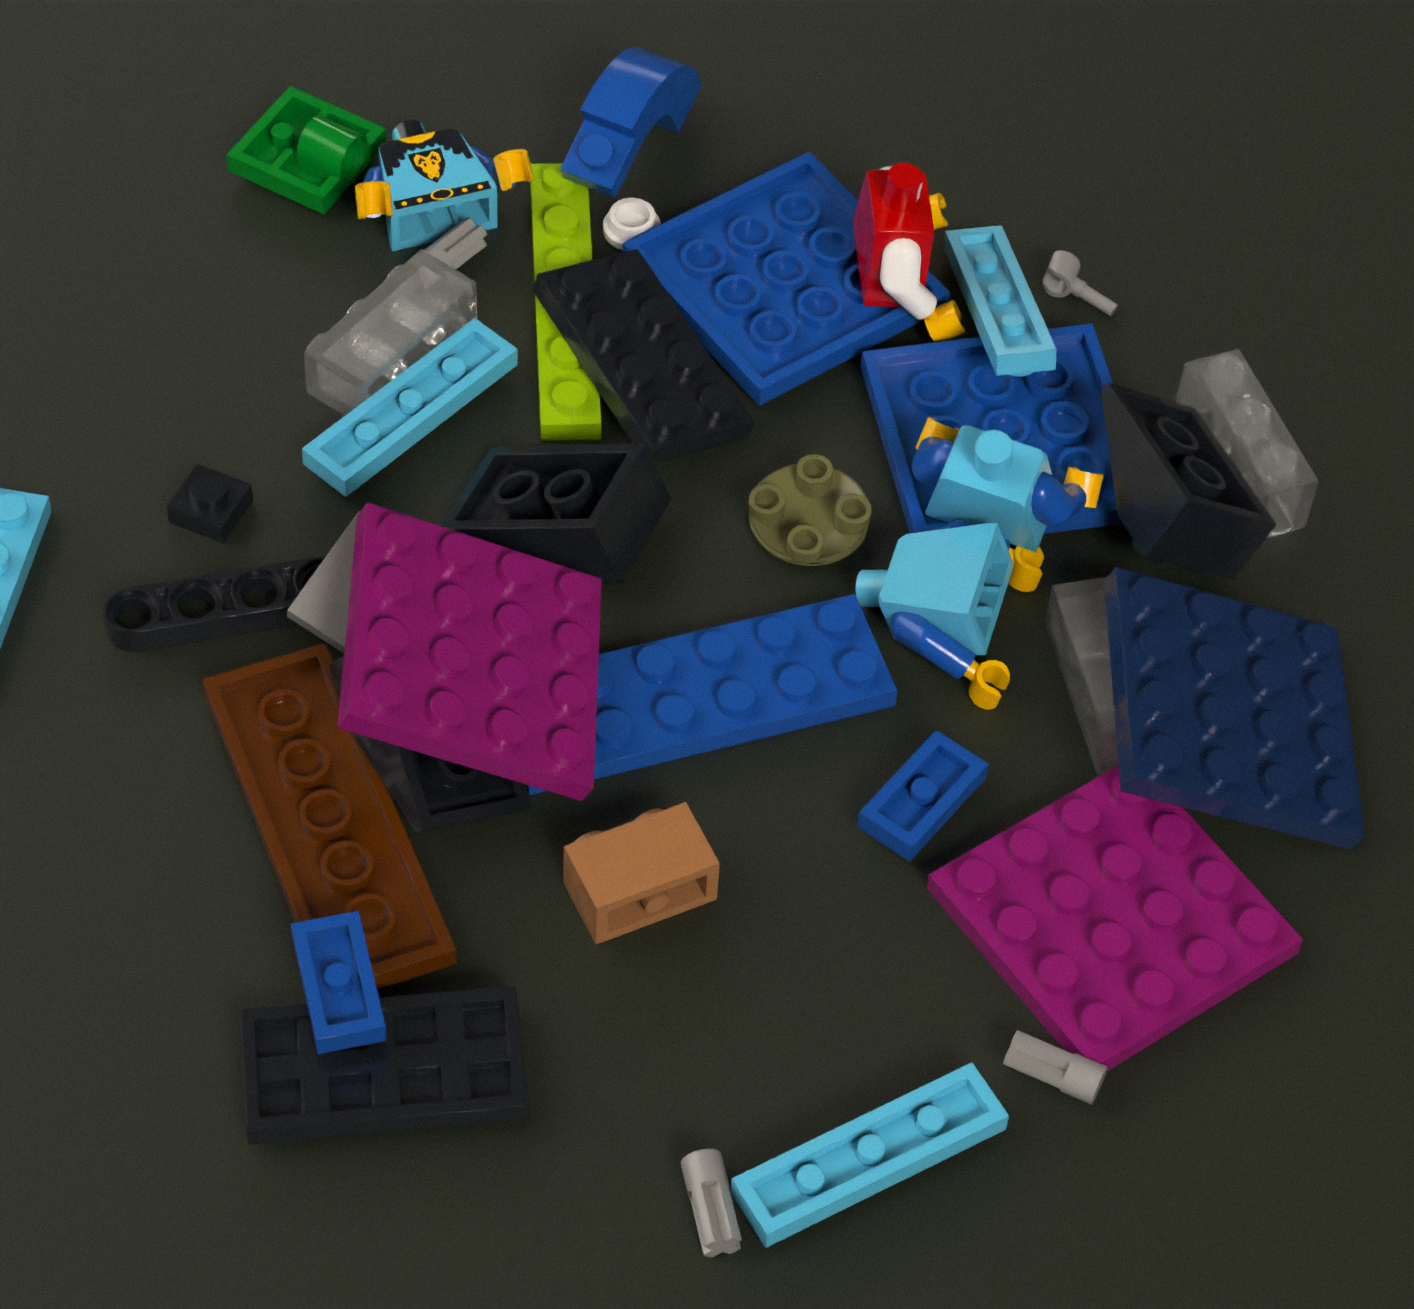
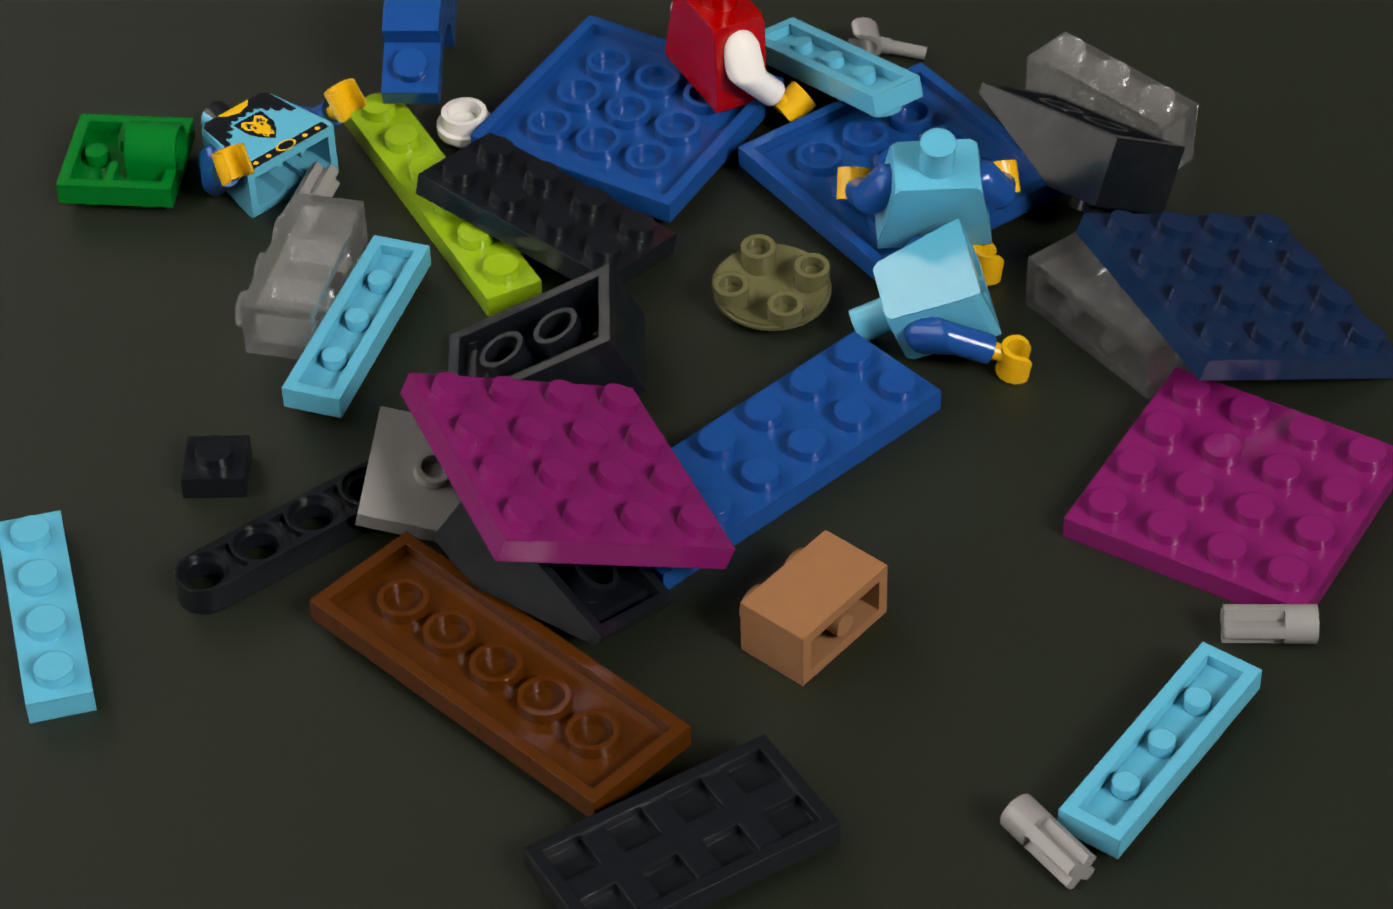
camera: 20 degrees left, 10 degrees down
(338, 982) = (608, 784): blue plate -> none
(922, 795) = (1017, 461): blue plate -> none

